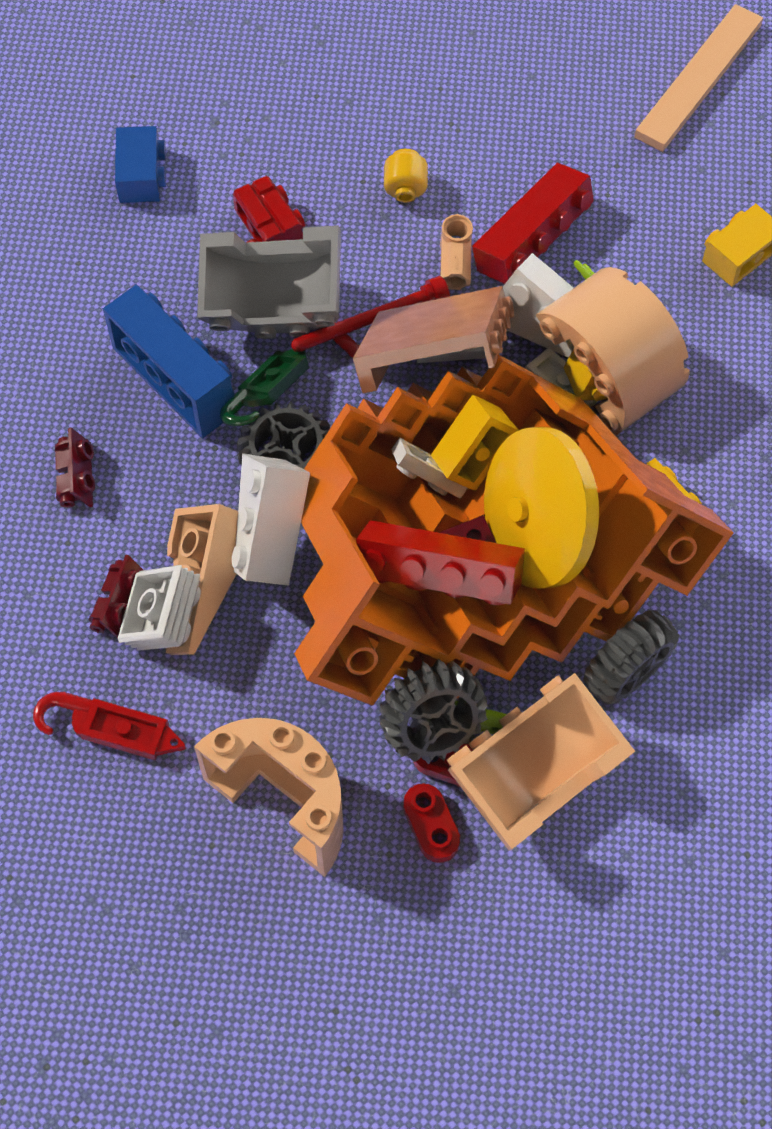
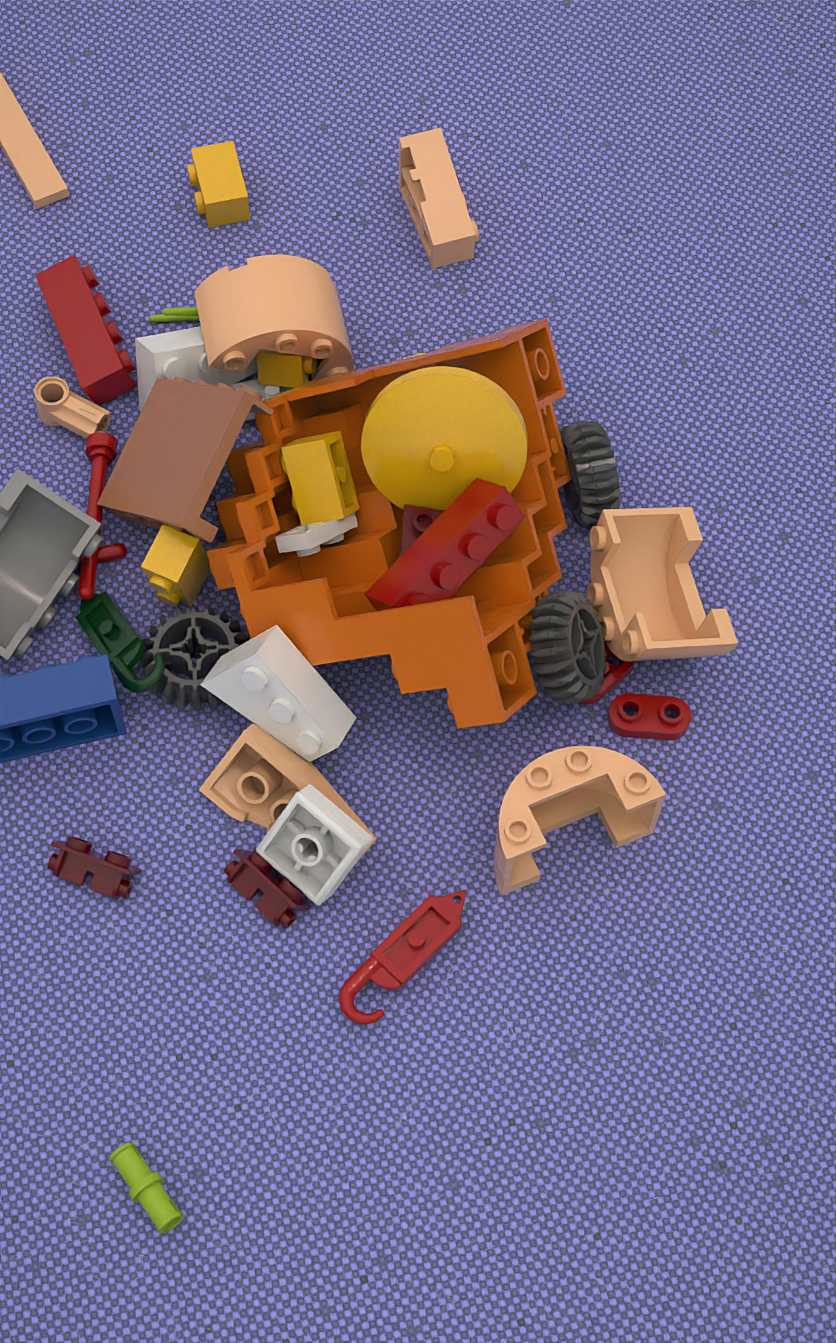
camera: 65 degrees left, 0 degrees up
(340, 385) = (176, 567): none -> yellow brick

